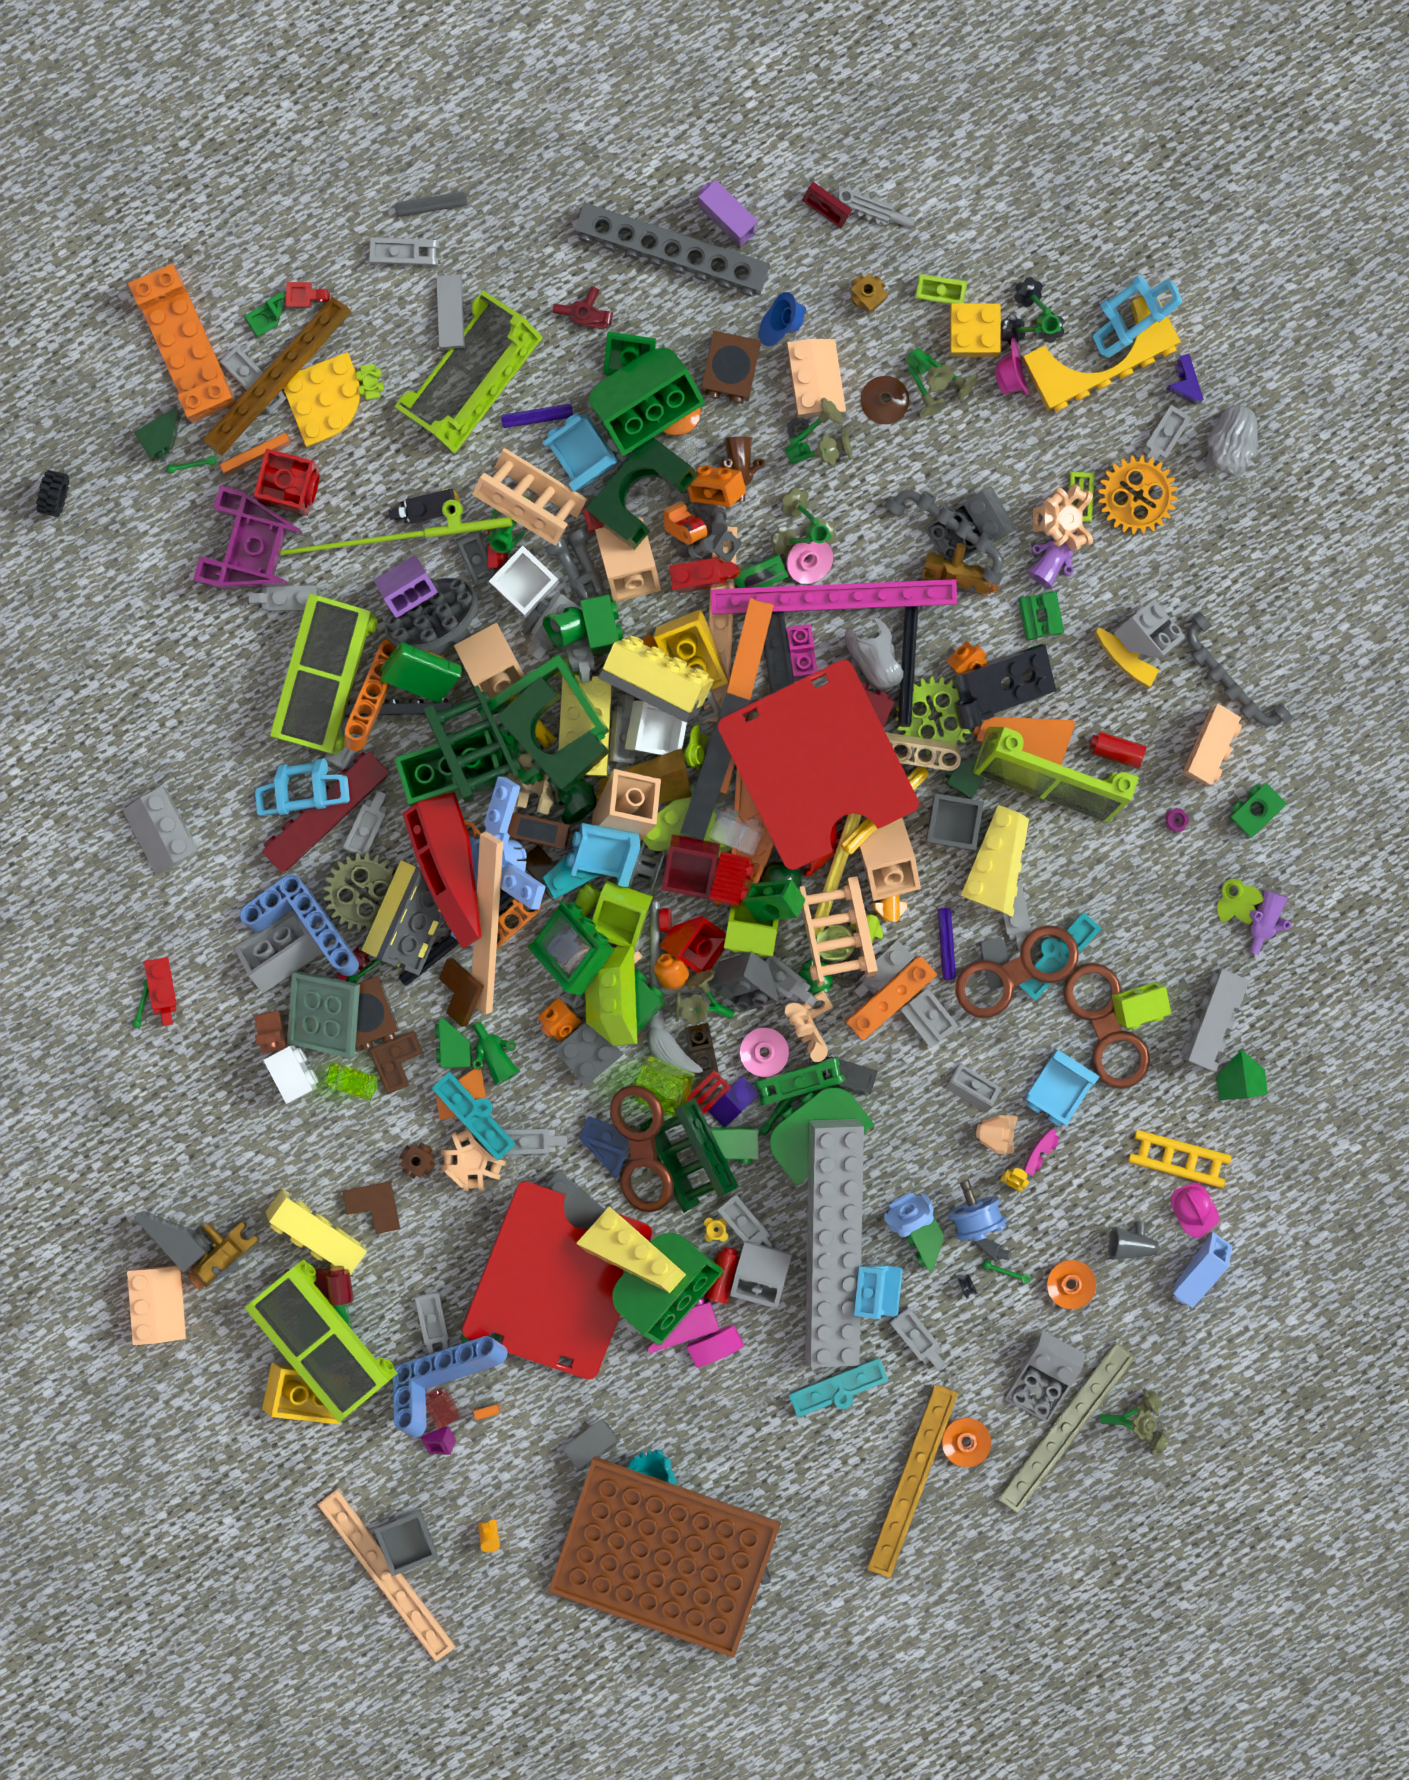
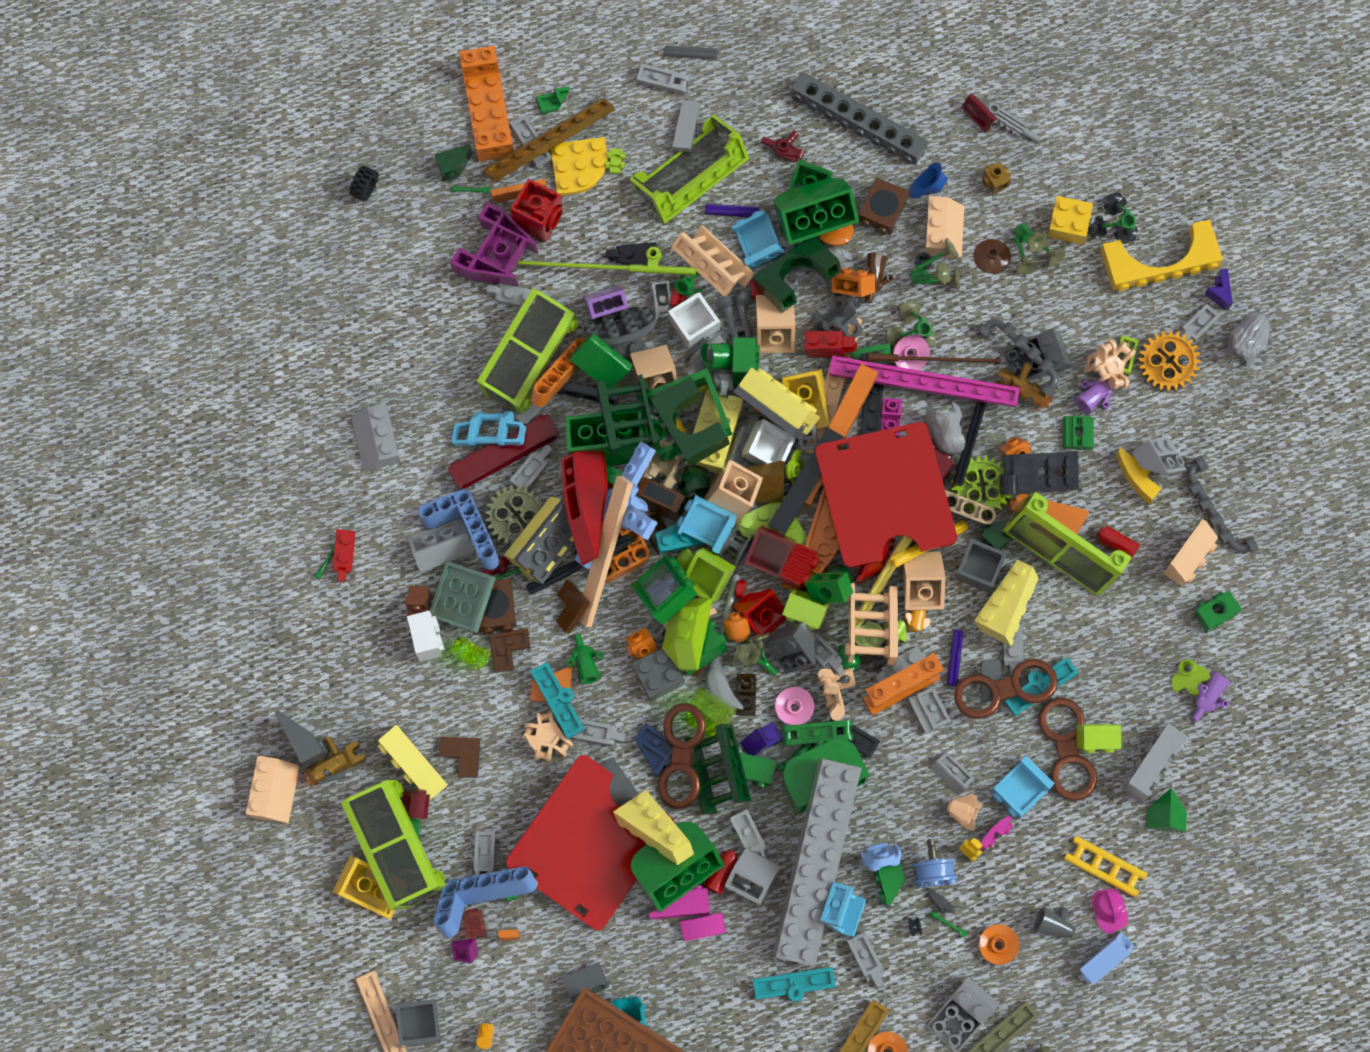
camera: 15 degrees right, 15 degrees down
(301, 295) = (581, 91): red plate -> none
(421, 1151) = (508, 731): reddish brown brick -> none
(454, 1046) = (555, 647): green slope -> none
(474, 813) = (612, 473): none -> green slope
(683, 524) = (822, 306): orange leg -> none
(710, 1234) = (721, 830): yellow plate -> none
(720, 1080) = (755, 720): red tile -> none
(727, 212) = (905, 100): medium lavender brick -> none
(736, 832) = (811, 533): clear brick -> none
(791, 573) = (895, 358): none -> reddish brown piece
(940, 289) = (1050, 186): lime brick -> none
(1010, 372) = (1090, 255): dark pink piece -> none
(1117, 322) = (1210, 232): medium azure bar -> none
(1171, 824) = (1155, 601): magenta plate -> none

